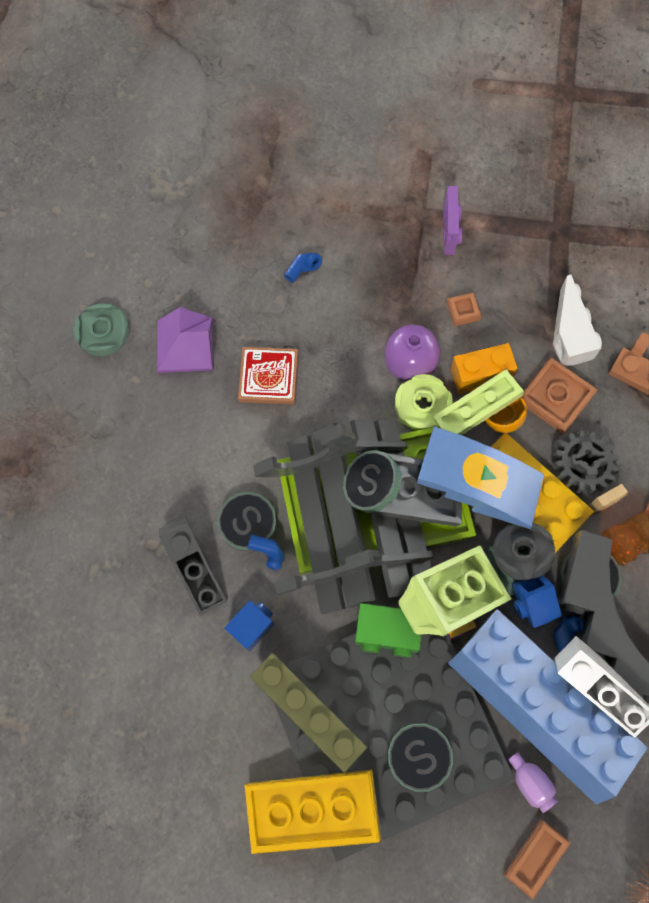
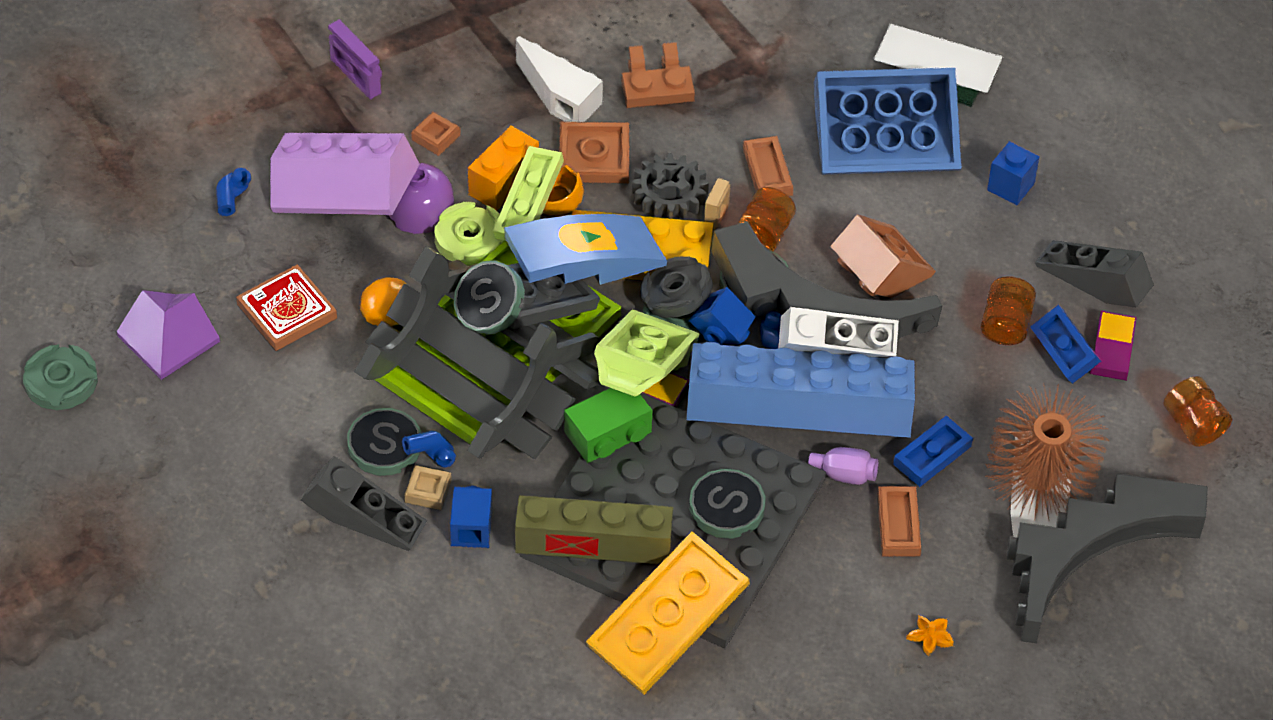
camera: 45 degrees left, 20 degrees down
(246, 577) = (428, 487): none -> tan tile
(330, 411) = (378, 299): none -> light orange hair
(369, 305) = (341, 173): none -> lavender slope
(606, 823) = (933, 451): none -> blue plate

